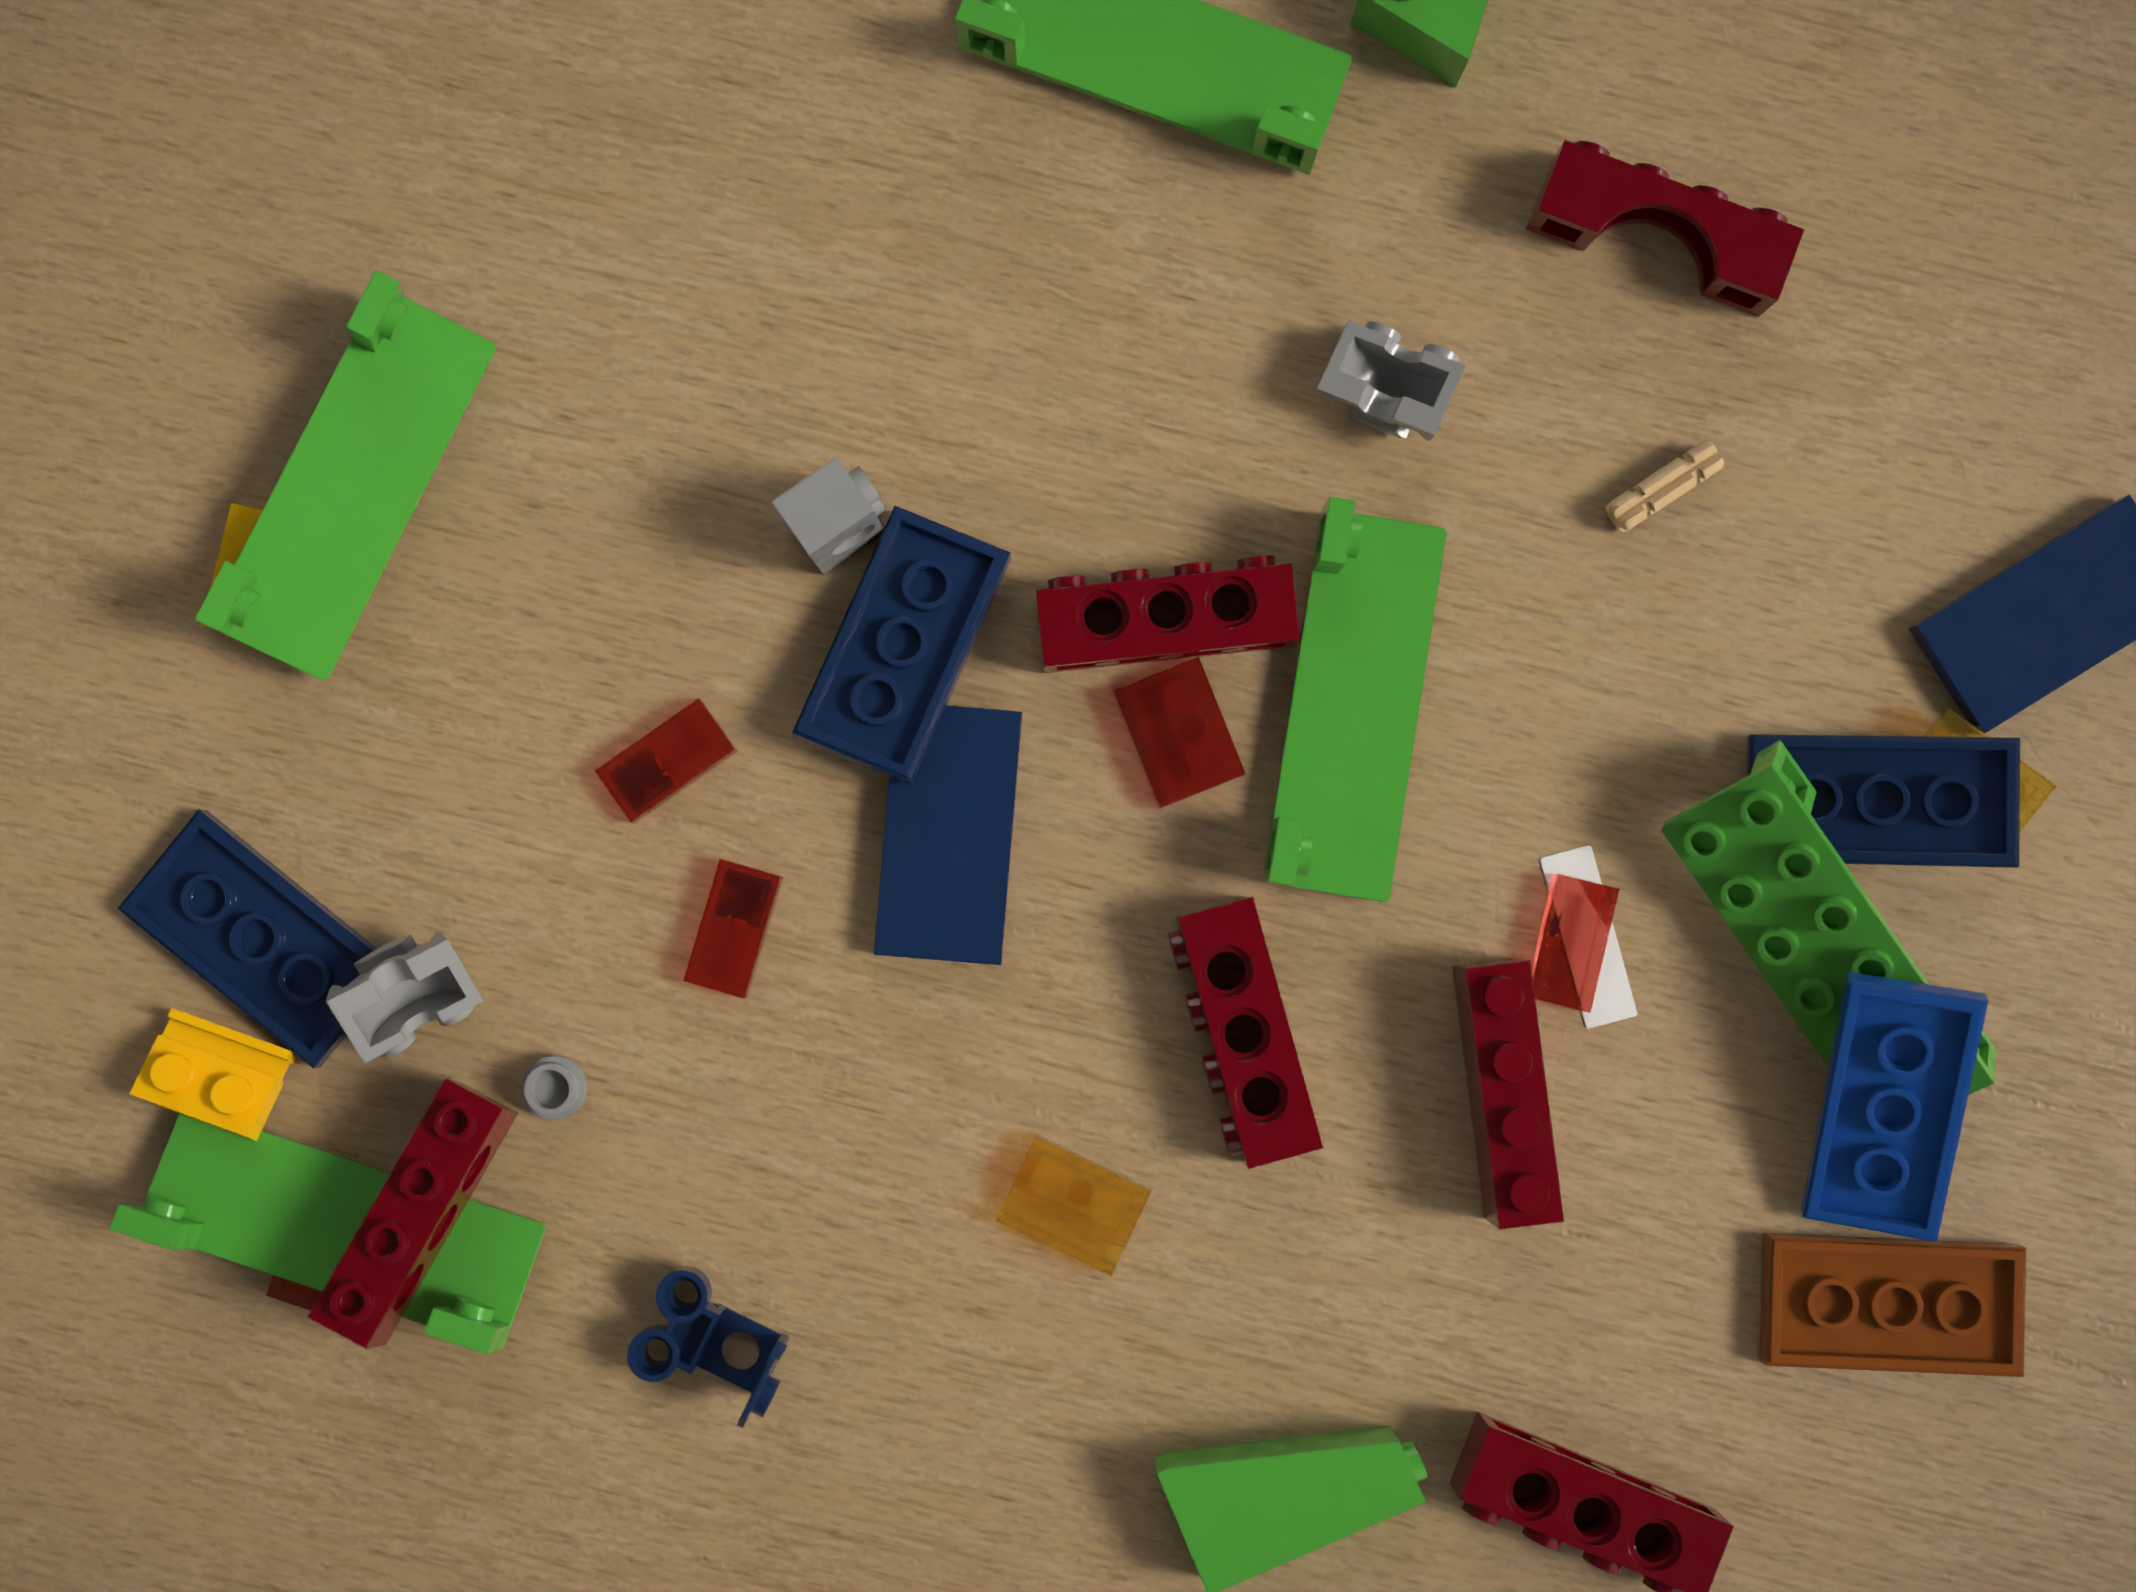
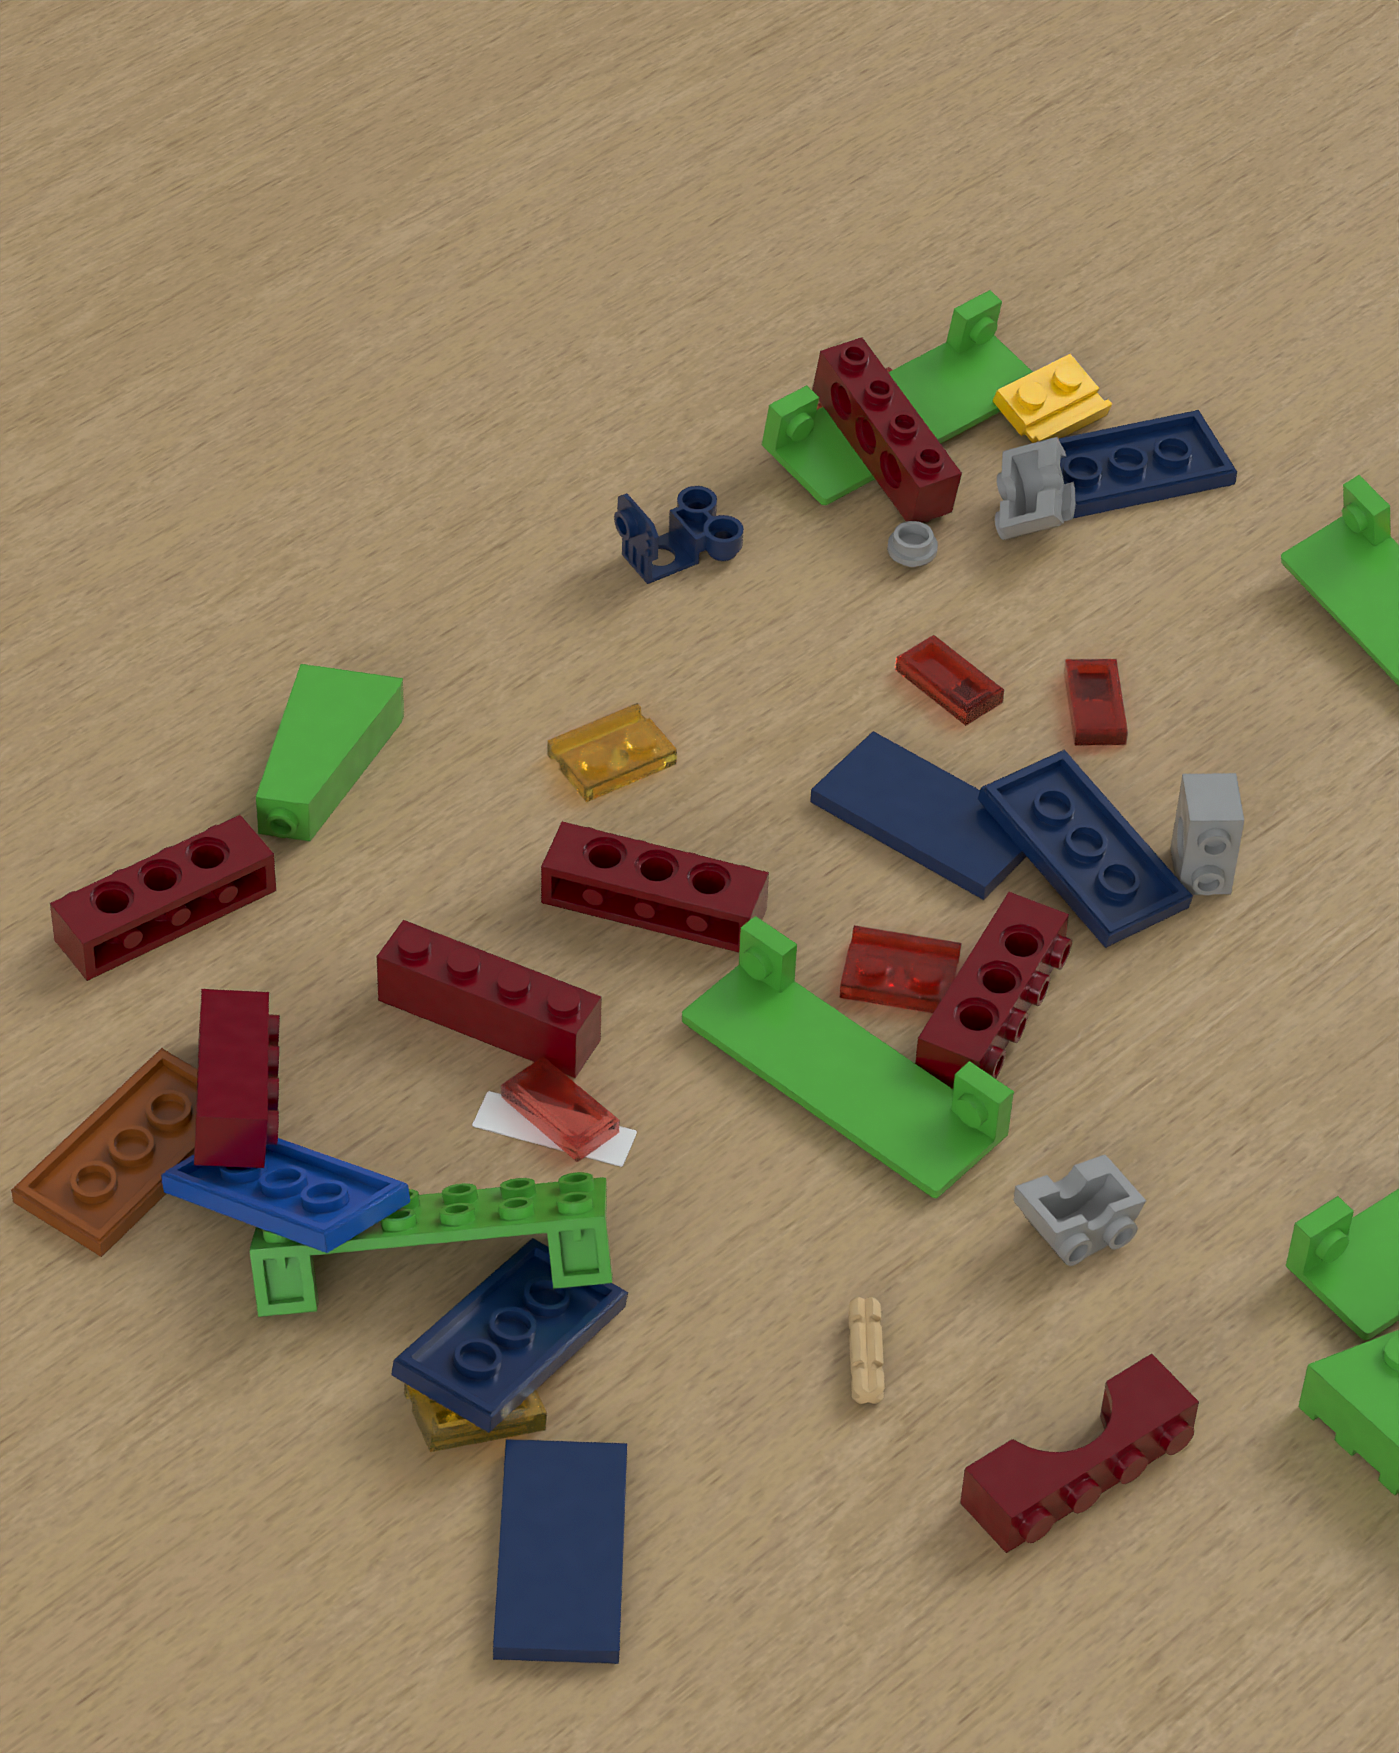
camera: 120 degrees right, 40 degrees down
(1799, 1252) = (236, 1079): none -> dark red brick

